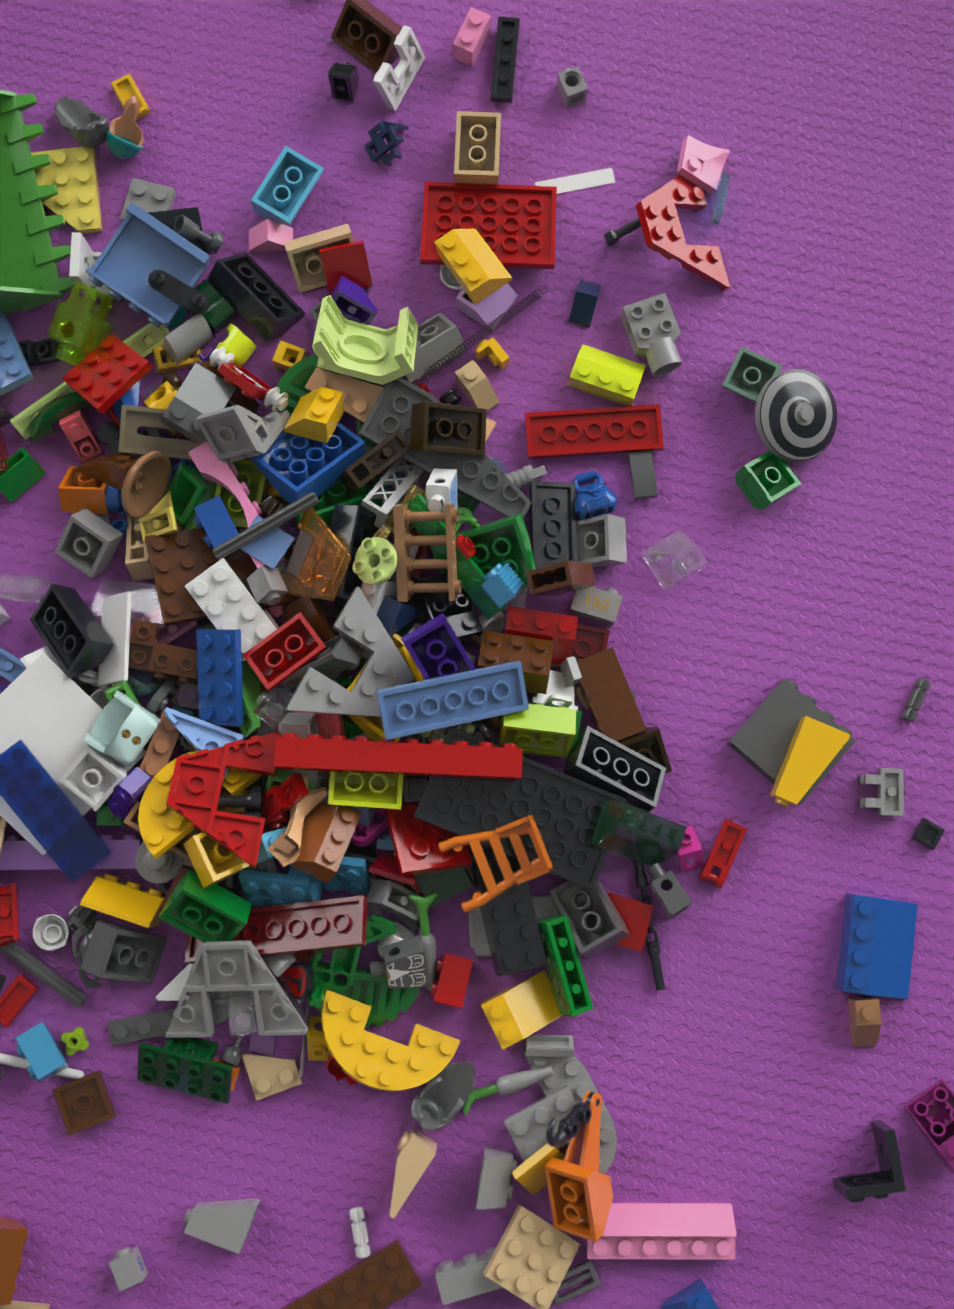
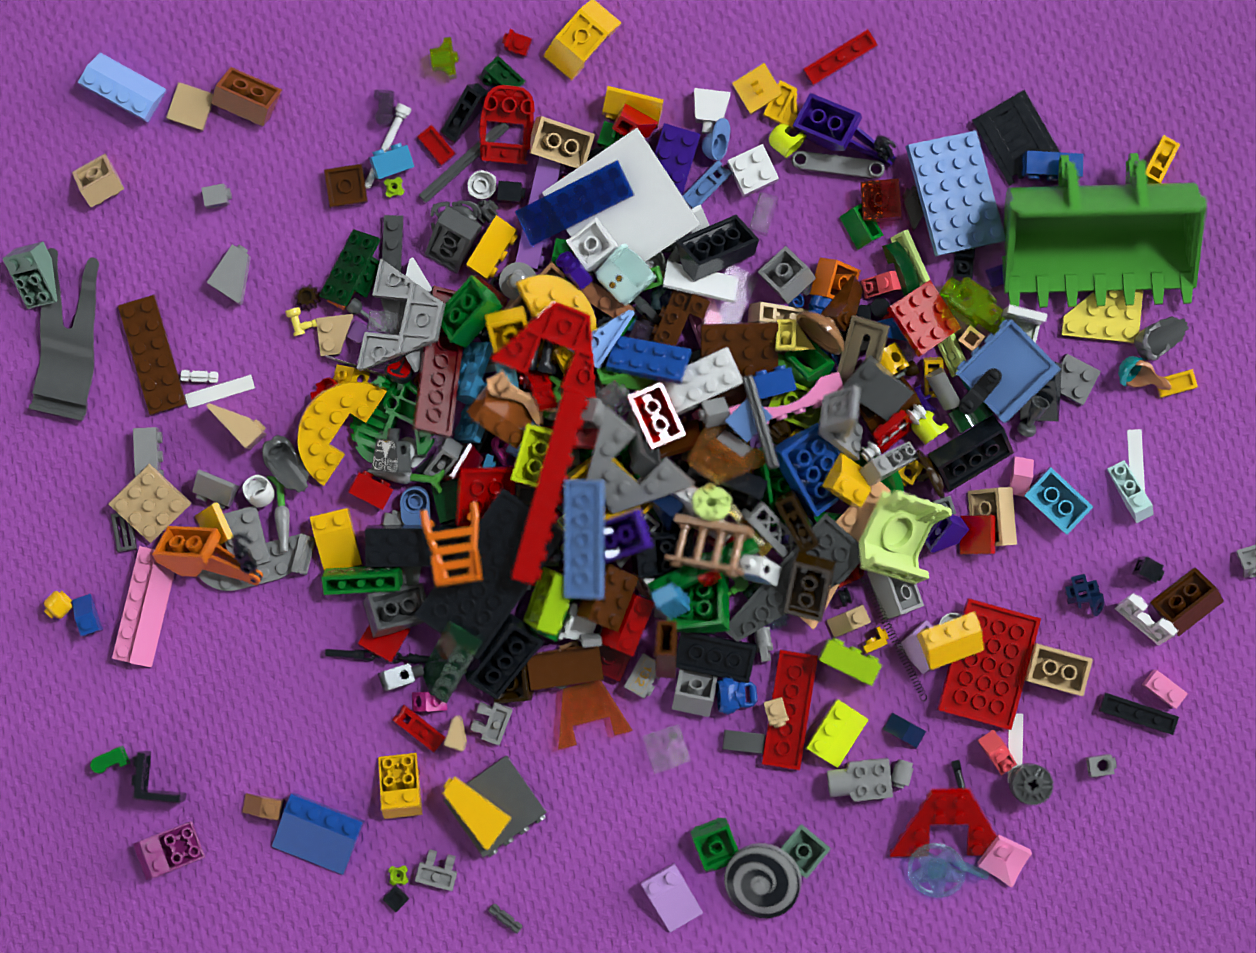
camera: 105 degrees right, 5 degrees up
(45, 313) = (995, 276): none -> dark purple tile
(53, 894) = (510, 192): none -> black brick
(123, 321) = (971, 339): none -> light nougat brick
(230, 122) = (1135, 454): none -> white sticker
(233, 1117) = (307, 297): none -> dark brown piece
(261, 117) = (1131, 491): none -> light aqua slope
(272, 1119) = (299, 327): none -> light yellow piece
(285, 375) = (888, 463): none -> light grey slope
(287, 330) = (931, 473): none -> dark brown shield
(373, 1201) = (219, 391): none -> white sticker
(457, 925) = (412, 502): none -> medium blue cap
(486, 1121) = (258, 491): none -> white helmet
(522, 373) = (850, 661): none -> lime brick
(584, 196) = (997, 752): none -> coral slope
(601, 443) = (776, 712): none -> tan bracket
(611, 162) = (1026, 773): none -> dark grey wheel
(634, 291) = (902, 773): none -> light grey brick
(646, 663) = (586, 704): none -> clear orange wing
(695, 762) = (496, 723): none -> light grey plate
(723, 805) = (456, 736): none -> tan tile
(733, 231) = (936, 870): none -> clear light blue wheel
(796, 860) = (400, 786): none -> yellow slope
(839, 516) = (671, 897): none -> lavender slope
(863, 1236) = (103, 762): none -> green leg
(906, 840) = (393, 875): none -> lime plate

